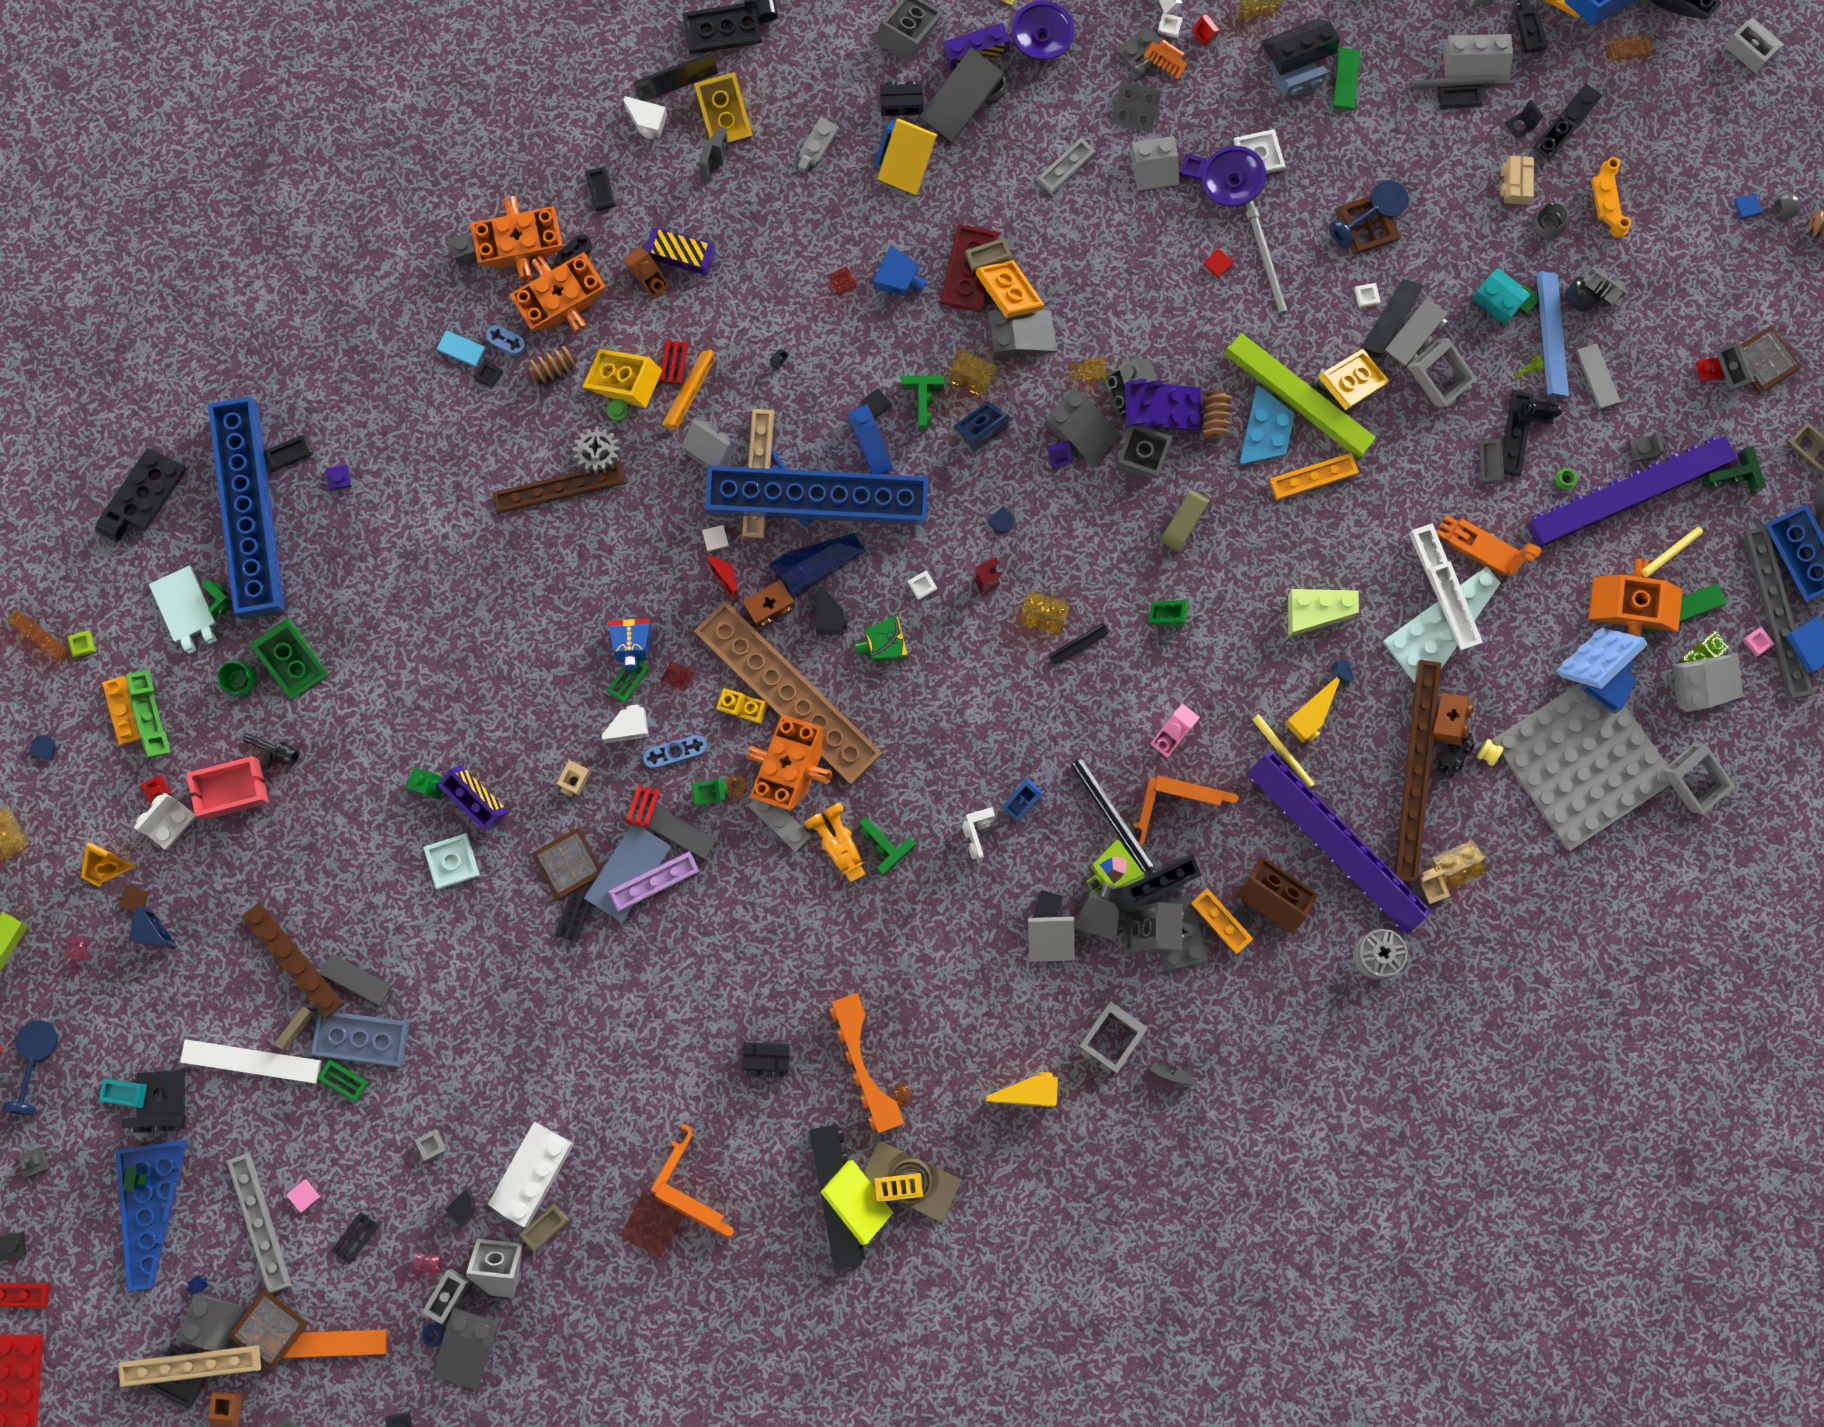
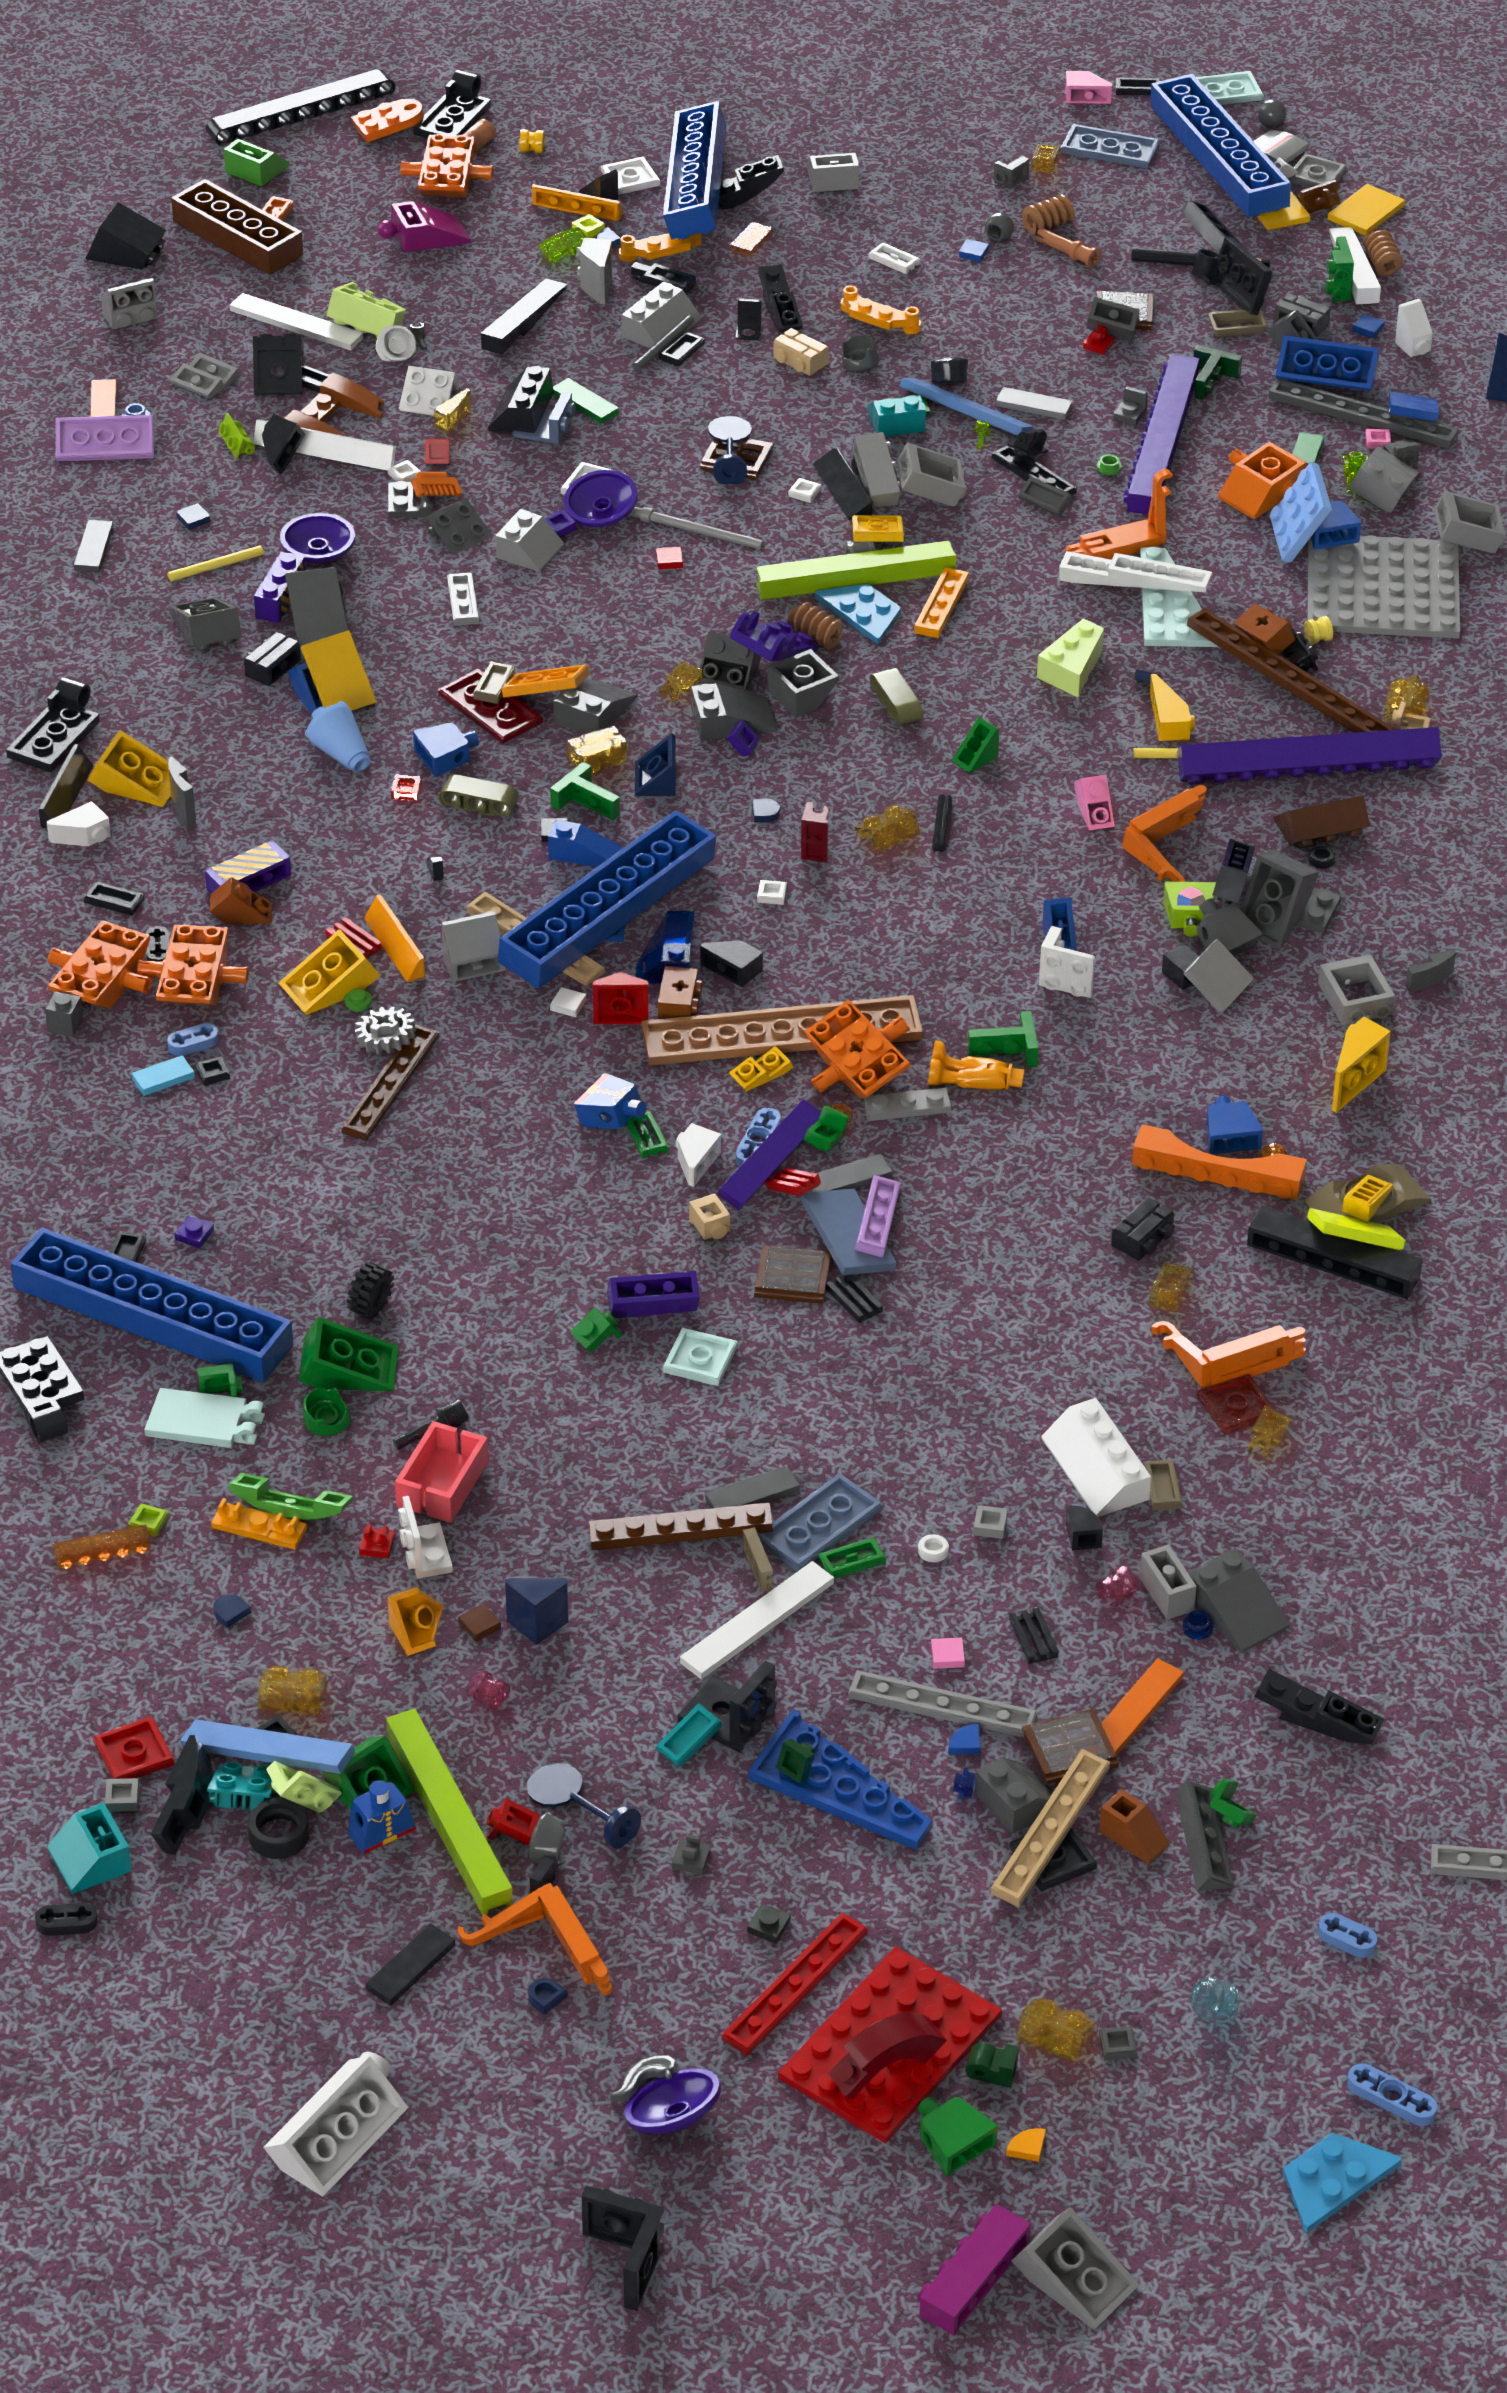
camera: 50 degrees left, 35 degrees down
(237, 1258) = (965, 1740): none -> blue tile
(349, 627) = (370, 1290): none -> black tyre
(387, 1124) = (933, 1548): none -> white tile
(495, 1266) = (1182, 1528): light grey slope -> none
(551, 365) = (260, 1015): medium nougat piece -> none
(638, 1263) = (1268, 1430): none -> clear yellow plate
(659, 774) = (769, 1155): none -> dark purple tile
(677, 676) = (679, 1099): clear red slope -> none
(712, 1115) = (1168, 1295): none -> clear yellow slope
(816, 144) = (247, 737): light grey hinge -> none
(851, 205) = (338, 735): none -> light blue cone
(868, 332) = (479, 795): none -> olive beam
(884, 642) = (804, 938): green torso -> none
(909, 1046) = (1232, 1127): none -> blue torso
(1112, 816) = (1127, 880): black axle -> none
(1221, 921) = (1326, 861): light orange plate -> none
(1367, 958) = (1444, 781): light grey wheel -> none
(1616, 288) = (960, 343): light grey hinge -> none
(1666, 556) = (1244, 435): light yellow bar -> none
(1683, 163) = (892, 260): none -> white tile
(1754, 670) = (1404, 451): none -> dark grey bracket
(1807, 276) = (1076, 250): none -> nougat pin

